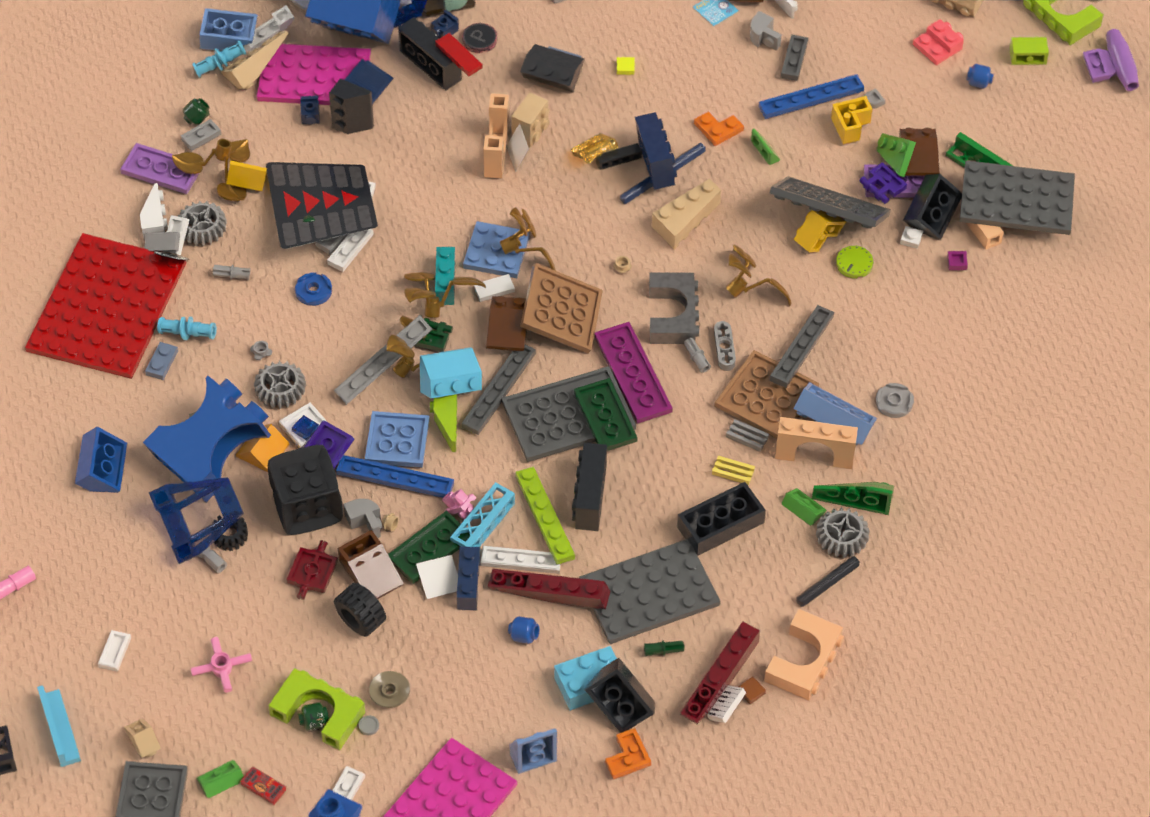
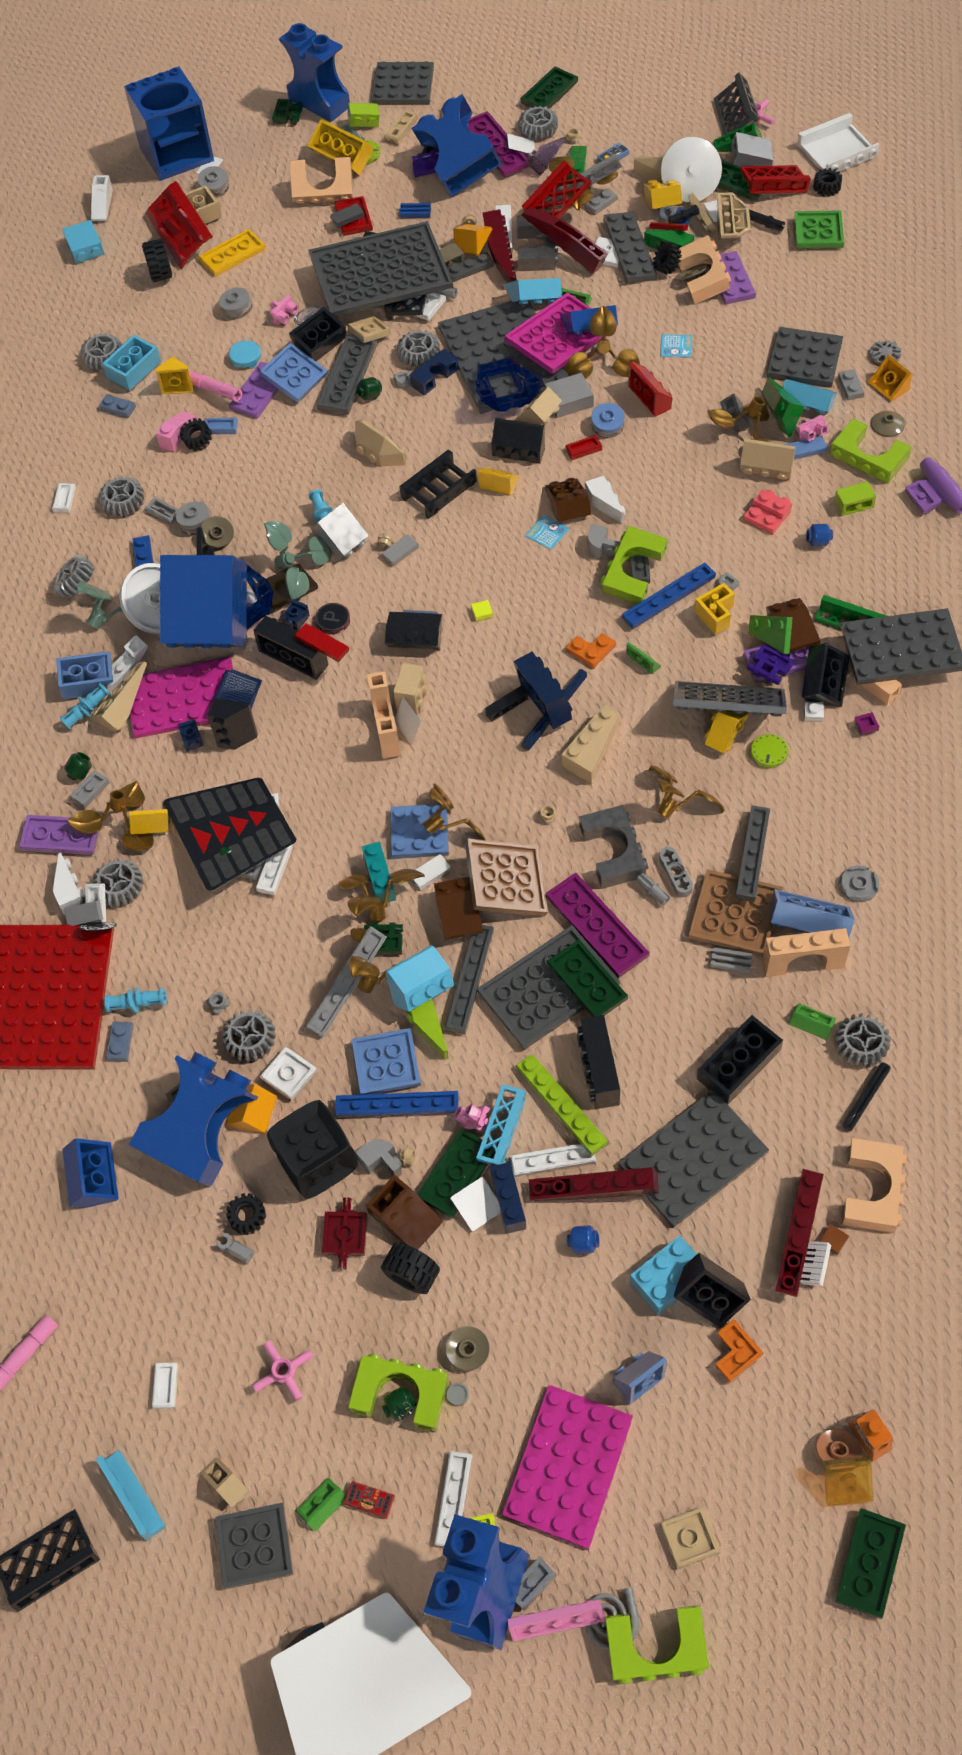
camera: 10 degrees left, 5 degrees up
(175, 523) = (191, 1226): clear blue windscreen -> none
(231, 271) = (163, 926): light grey axle -> none
(305, 427) = (289, 1076): clear blue tile -> none
(316, 297) = (254, 930): blue tile -> none
(333, 439) = (319, 1085): dark purple plate -> none
(594, 147) = (480, 701): clear yellow plate -> none
(662, 648) = (730, 1218): dark green axle -> none
(734, 468) = (723, 997): light yellow tile -> none
(792, 38) = (633, 542): none -> lime arch
(865, 495) = (875, 993): green wedge -> none

